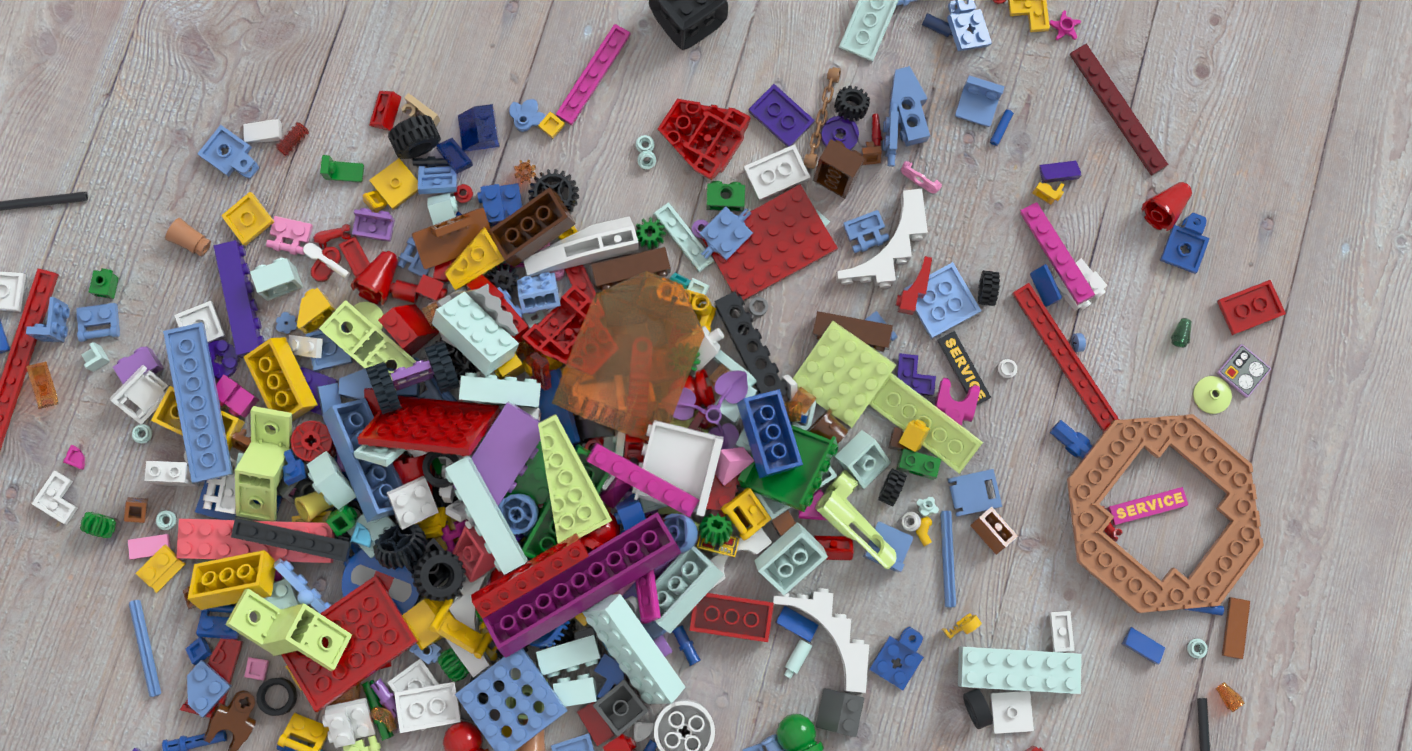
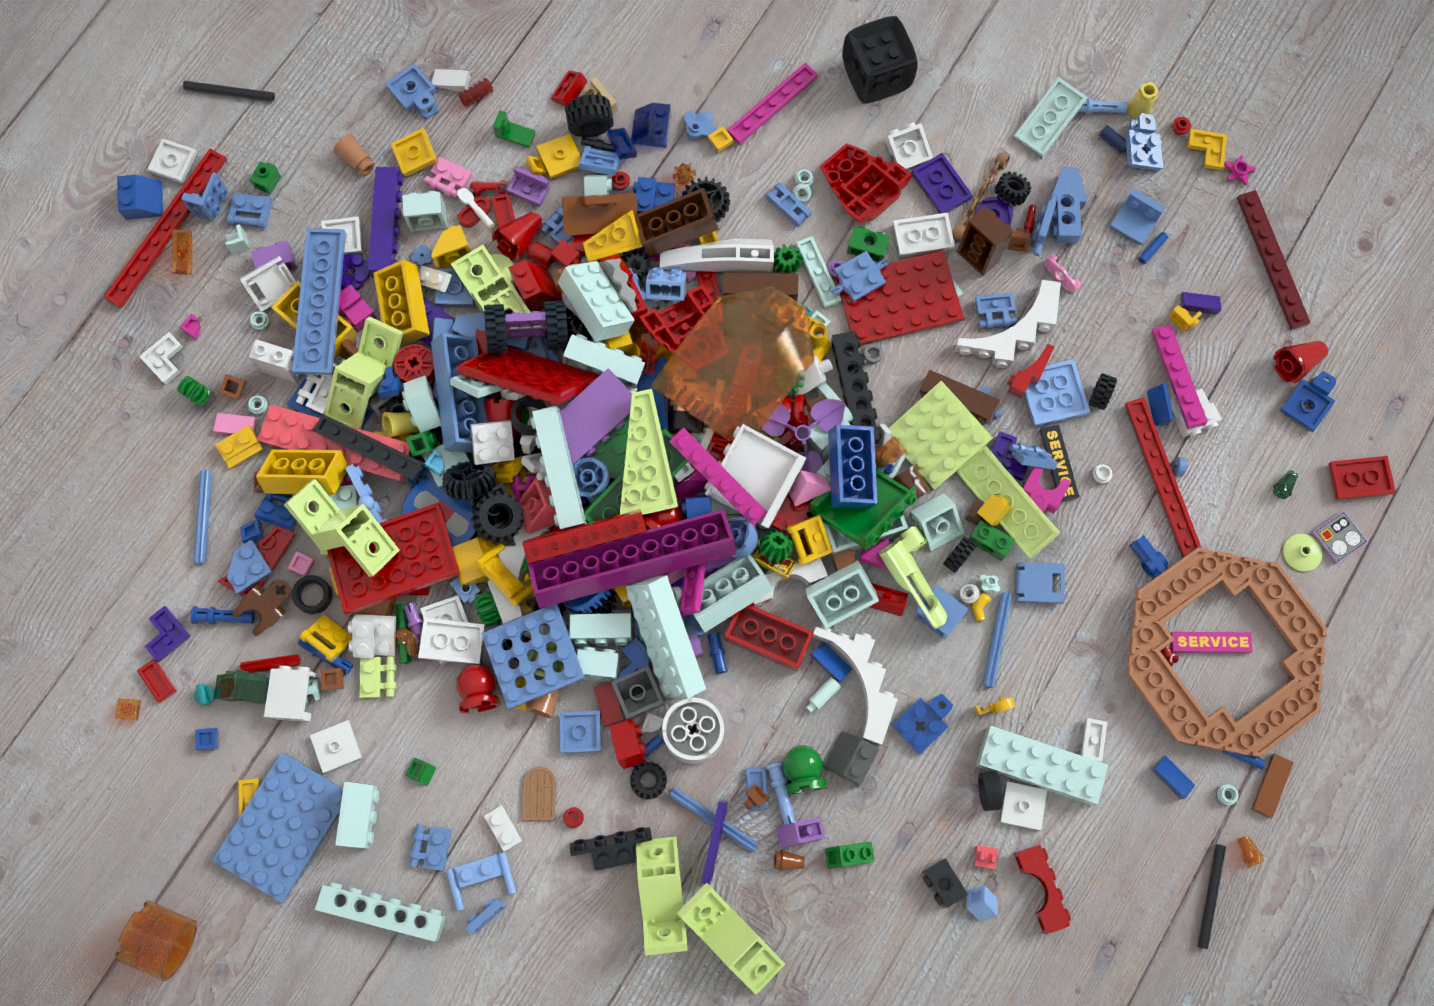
camera: 20 degrees right, 5 degrees down
(636, 175) = (788, 204): none -> medium blue plate
(739, 85) = (909, 145): none -> white plate
(938, 371) = (1033, 456): none -> medium blue plate
(994, 530) = (1050, 623): dark orange brick -> none

